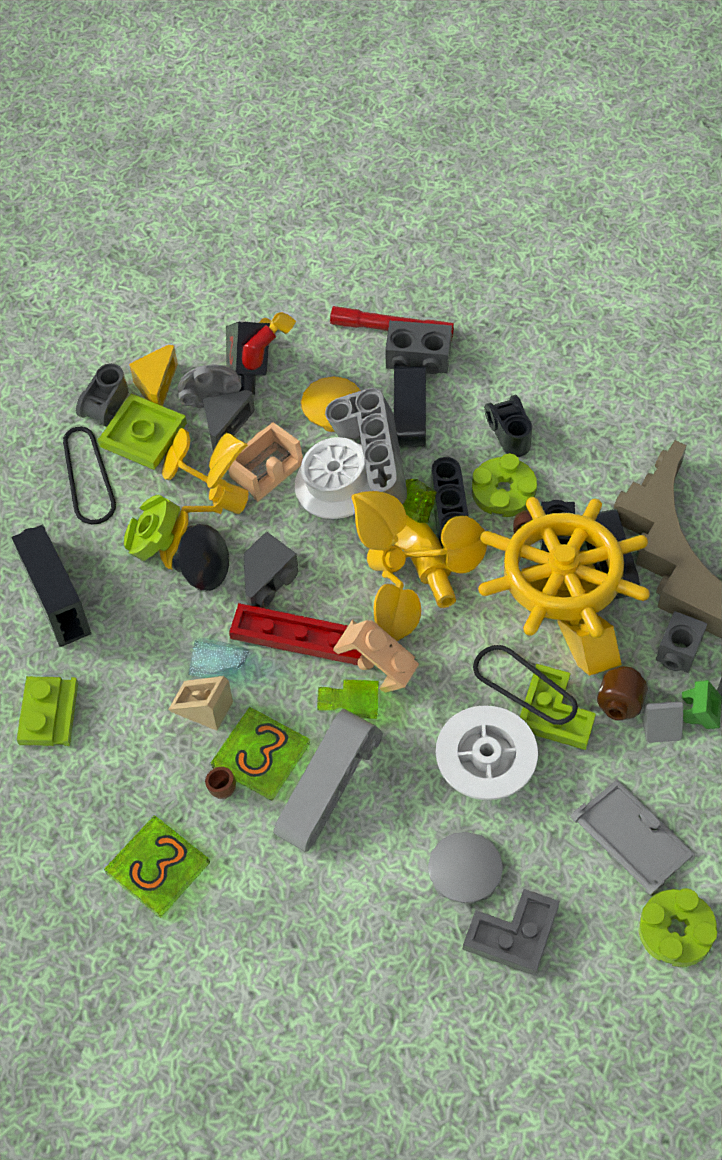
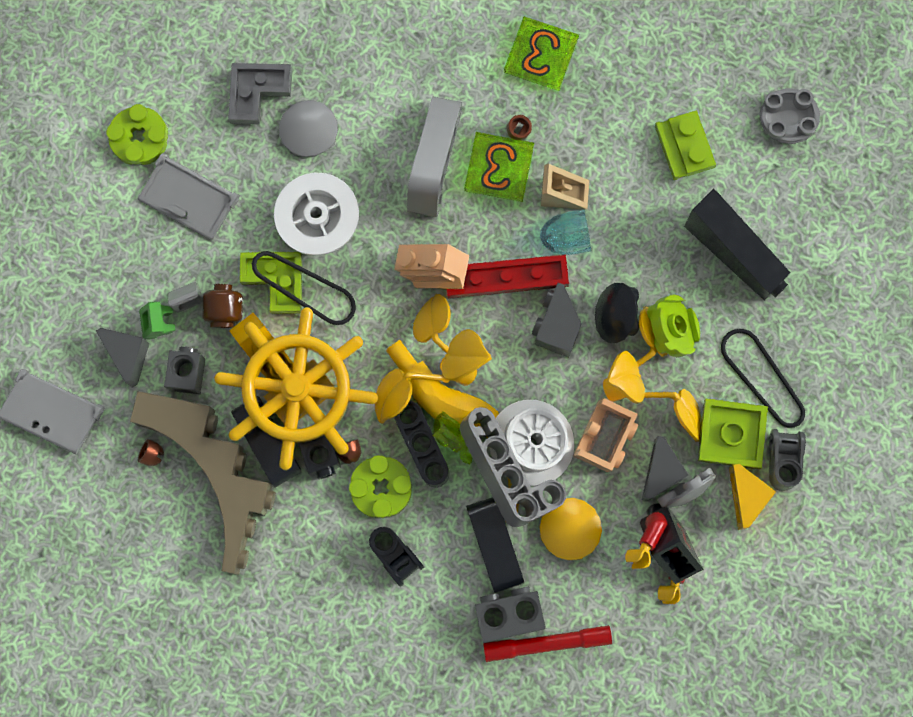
camera: 165 degrees right, 20 degrees up
(356, 696) = (441, 232): clear neon green plate -> none

